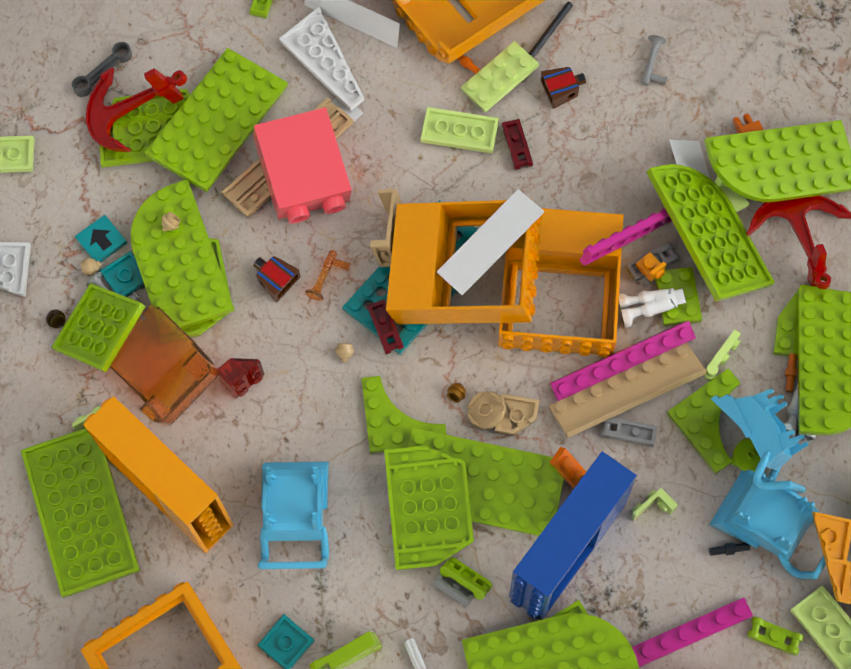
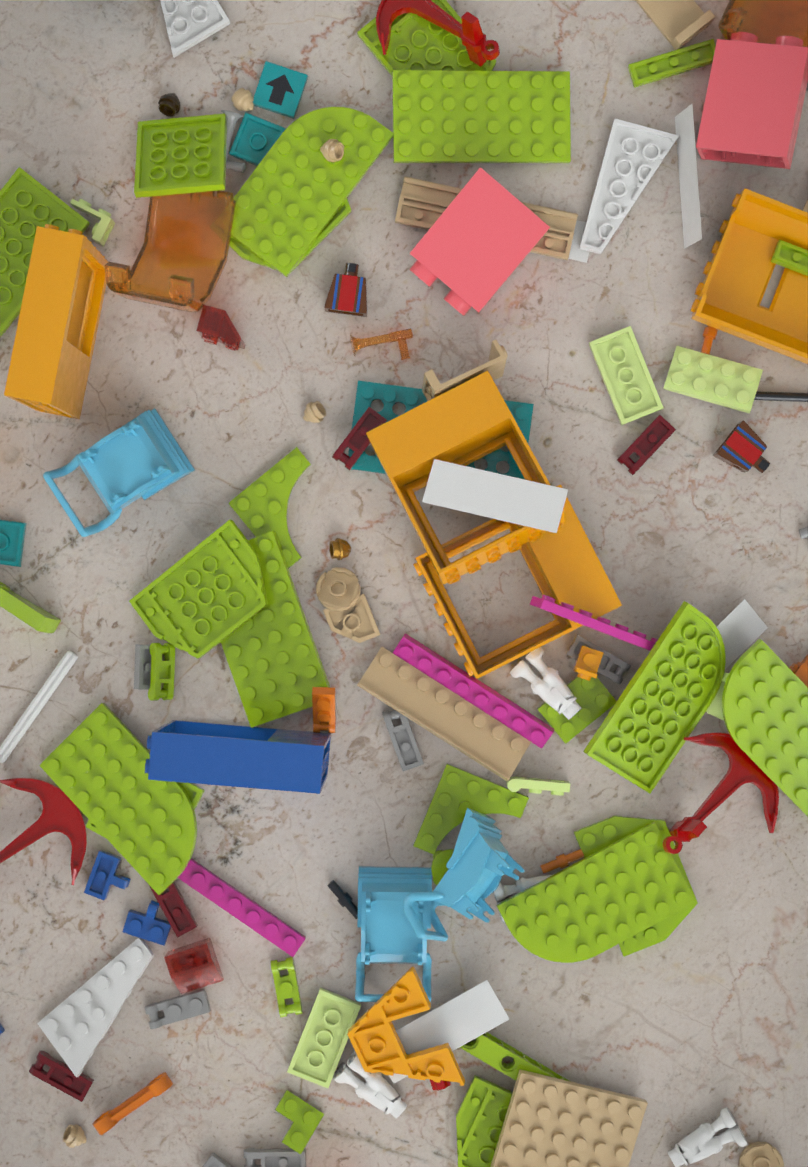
camera: 55 degrees right, 20 degrees up
(664, 501) = (351, 814): yellowish green bracket -> none

